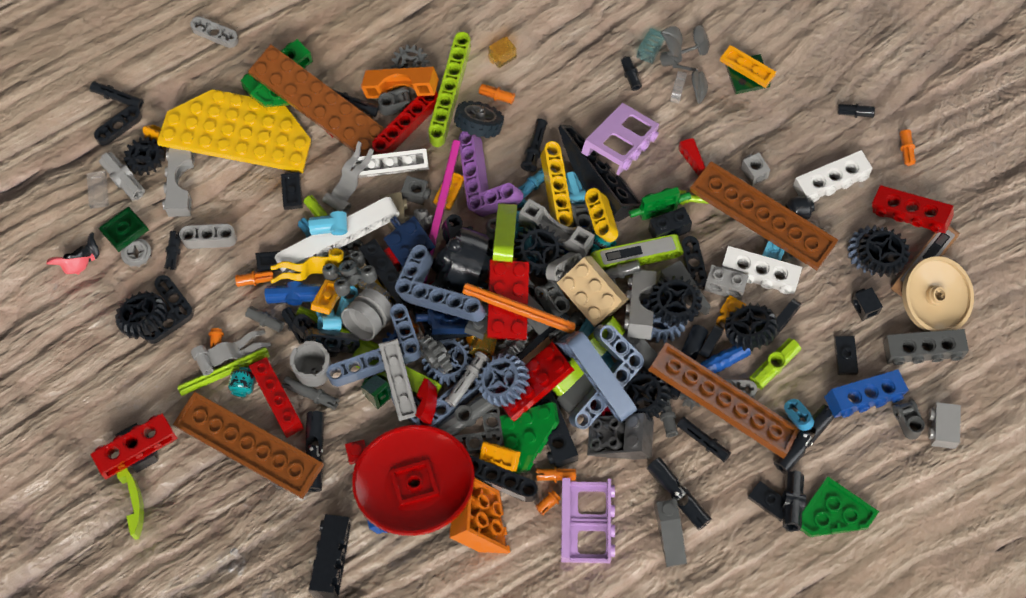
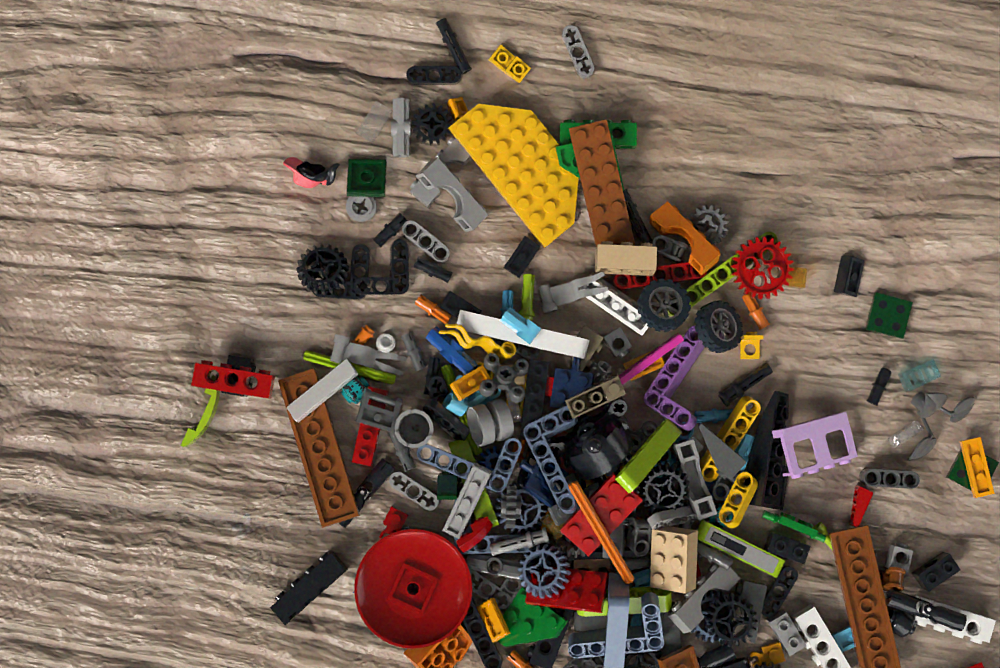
camera: 35 degrees right, 20 degrees up
(170, 77) = (509, 64): none -> yellow slope
(203, 283) = (389, 281): none -> black beam
(215, 399) = (322, 390): none -> white slope
(220, 187) = (468, 211): none -> light grey arch
(230, 251) = (433, 269): none -> black pin
(237, 330) = (385, 343): none -> white plate
(273, 377) = (376, 416): none -> dark grey plate
(359, 424) = (414, 498): none -> light grey beam
(368, 122) = (625, 259): none -> tan brick
(421, 124) = (652, 318): none -> black wheel
(429, 223) = (595, 396): none -> dark tan slope
(473, 57) = (777, 259): none -> red gear
(510, 113) = (750, 338): none -> yellow bracket
(541, 23) = (849, 276): none -> black slope
(559, 193) = (724, 457): none -> dark grey slope
(593, 25) = (888, 315): none -> dark green tile
(700, 116) = (898, 478): none -> dark grey beam
(765, 181) = (892, 578): none -> dark orange piece
(789, 155) = (936, 571): none -> black brick
(809, 178) = (937, 614): none -> black piece

